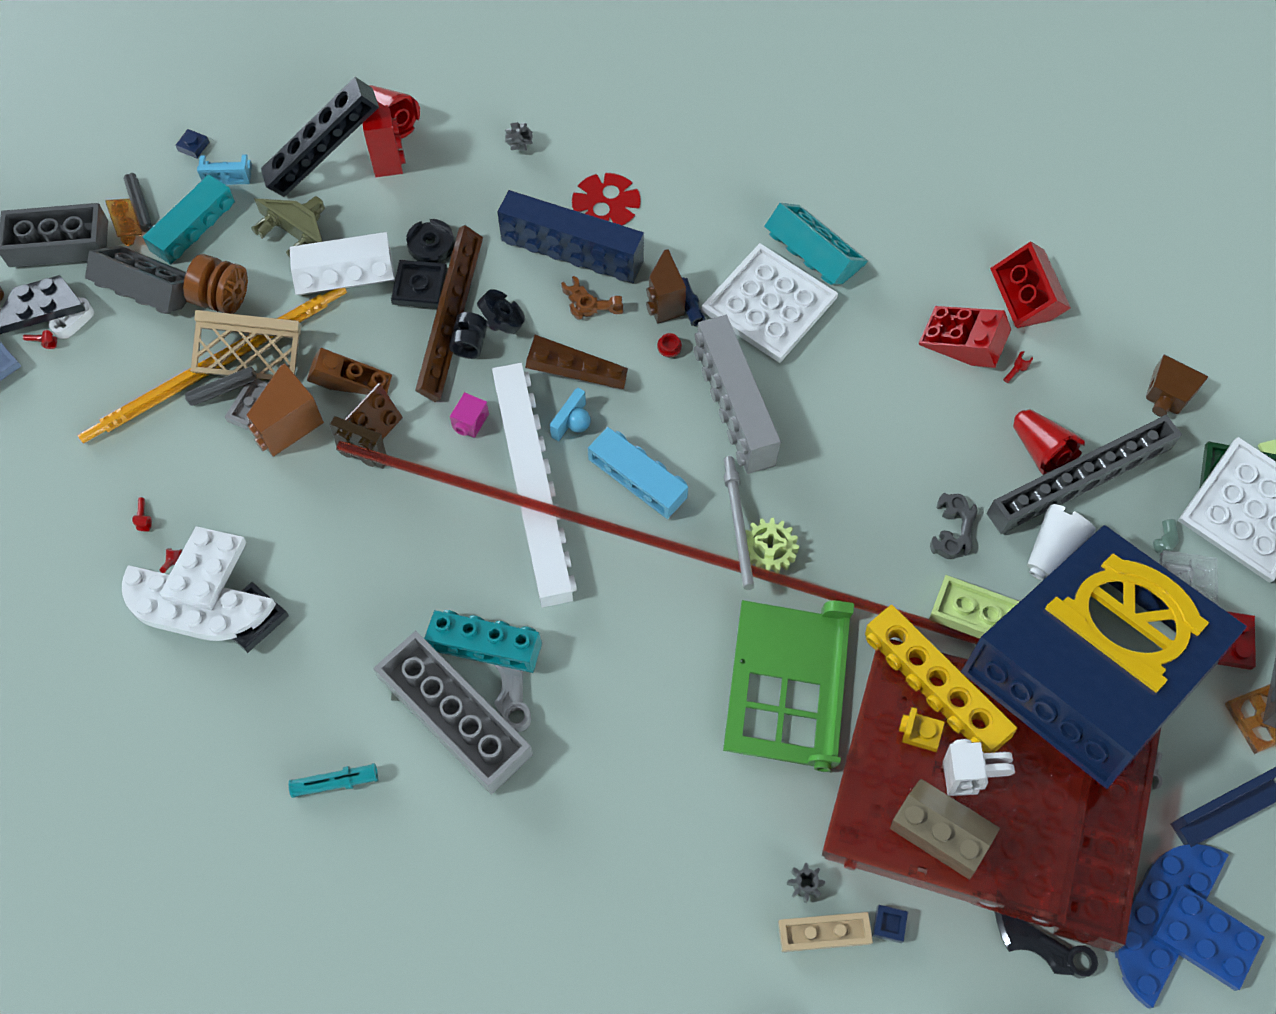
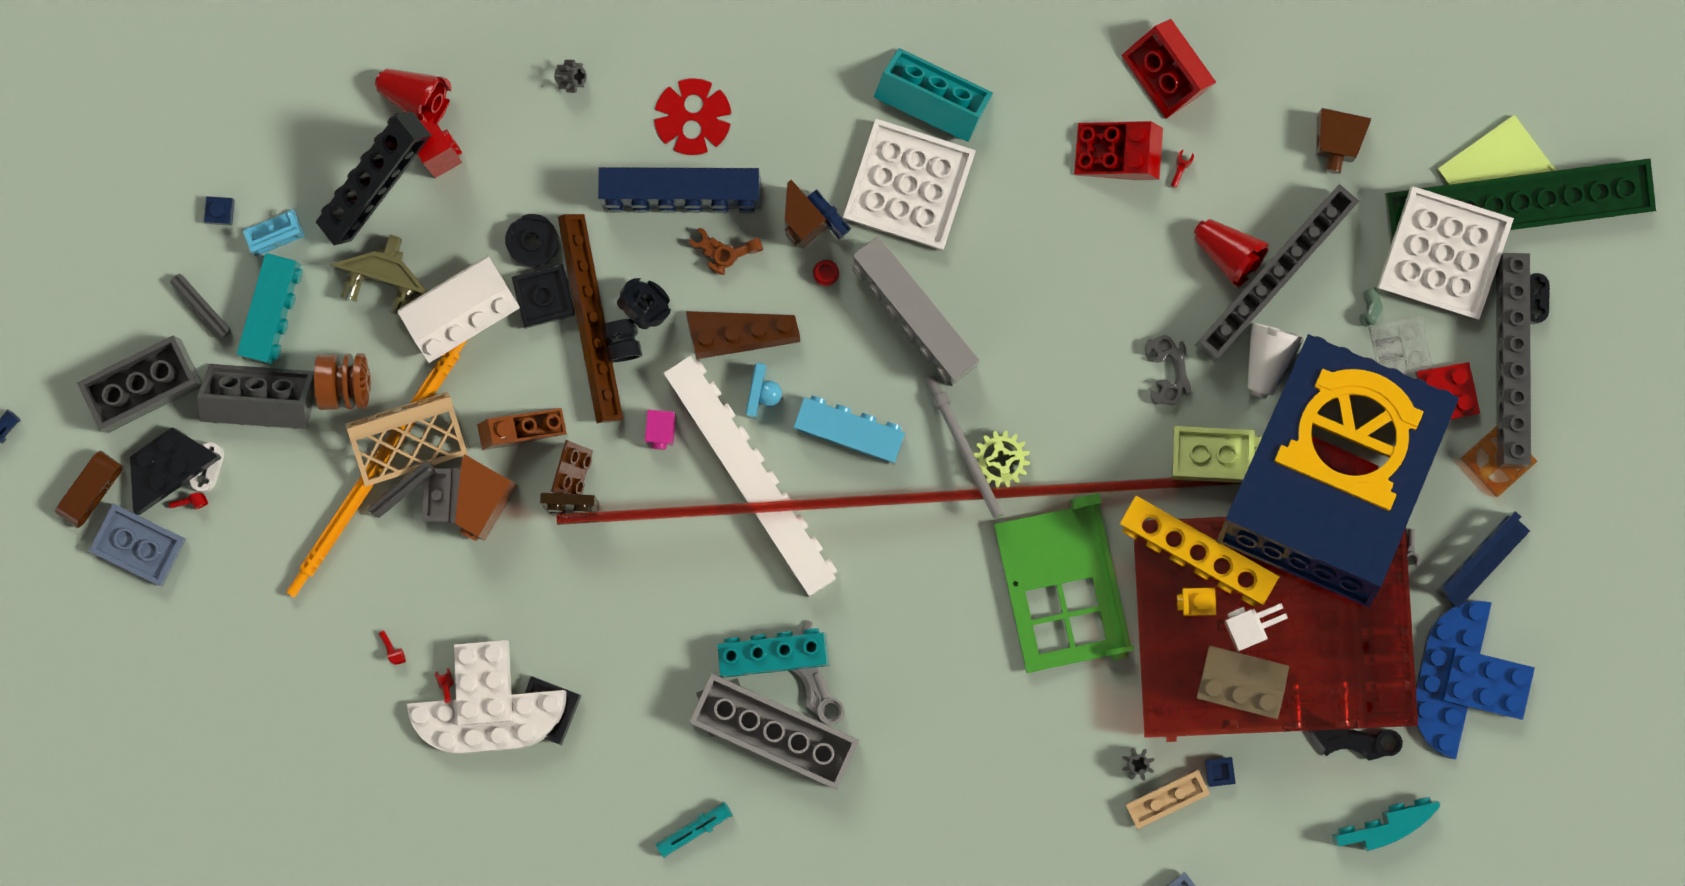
camera: 15 degrees left, 20 degrees up
(124, 220) = (201, 336): clear orange hinge -> none

